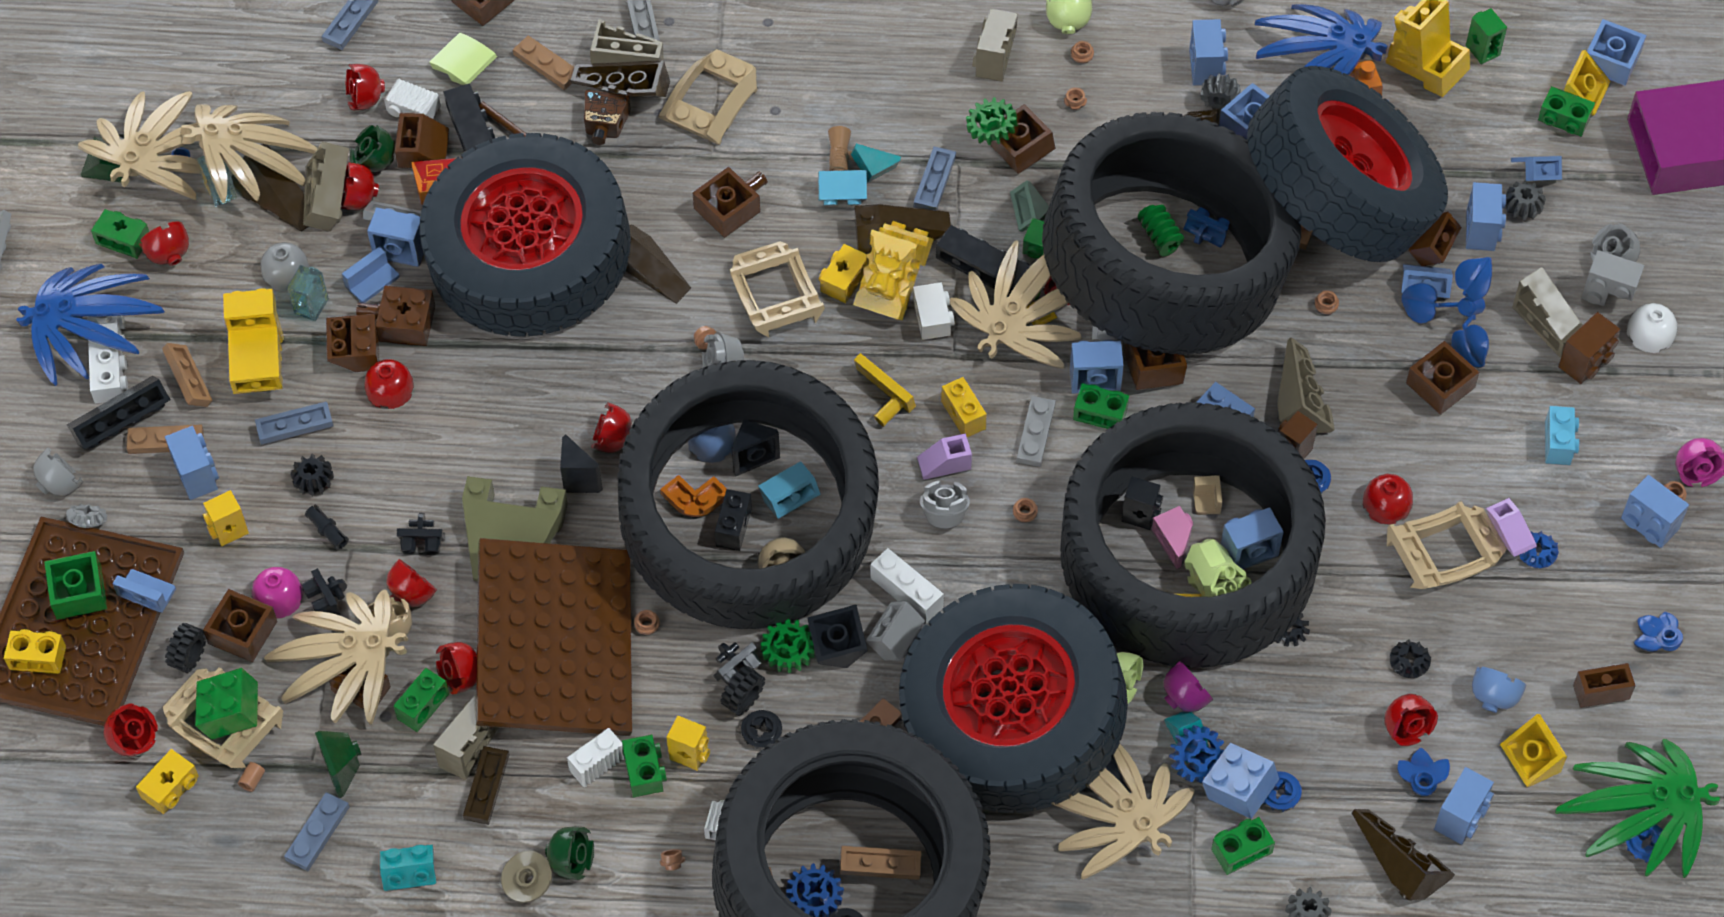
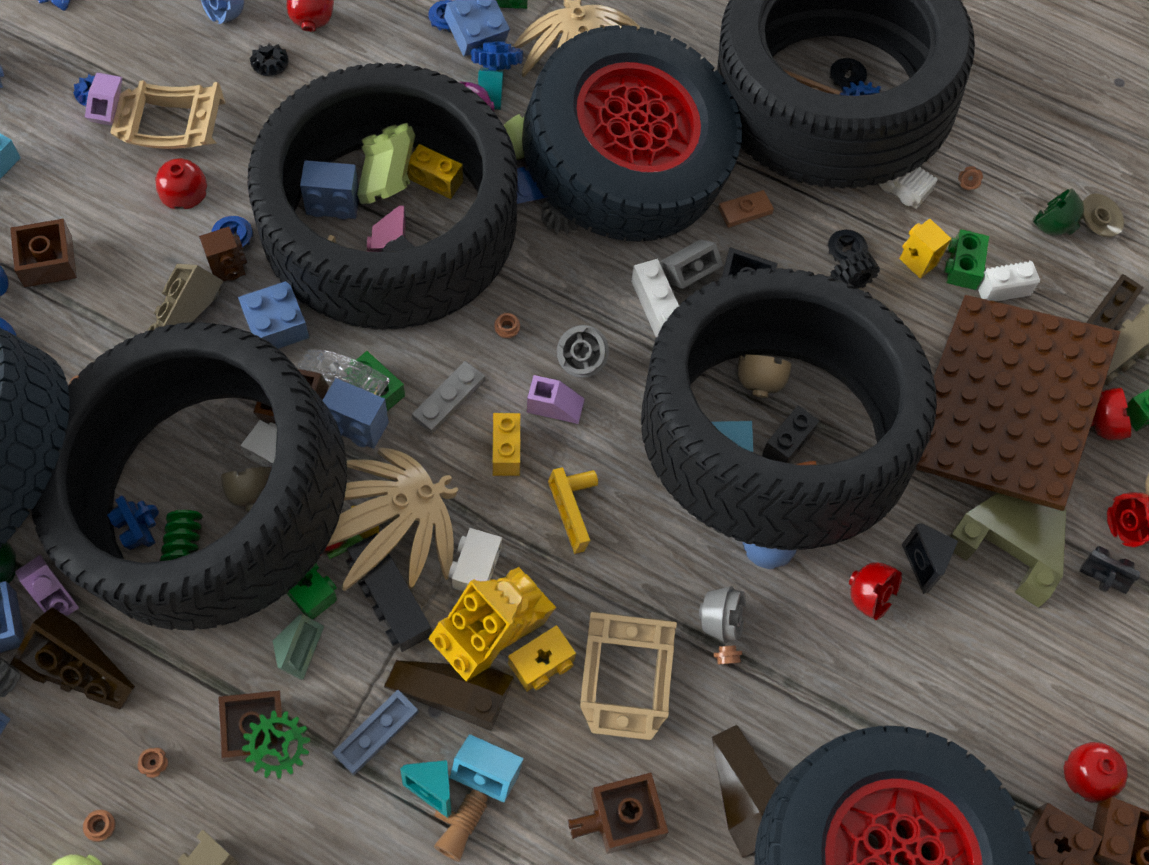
camera: 160 degrees left, 5 degrees up
(1128, 388) = (344, 368): none -> clear slope

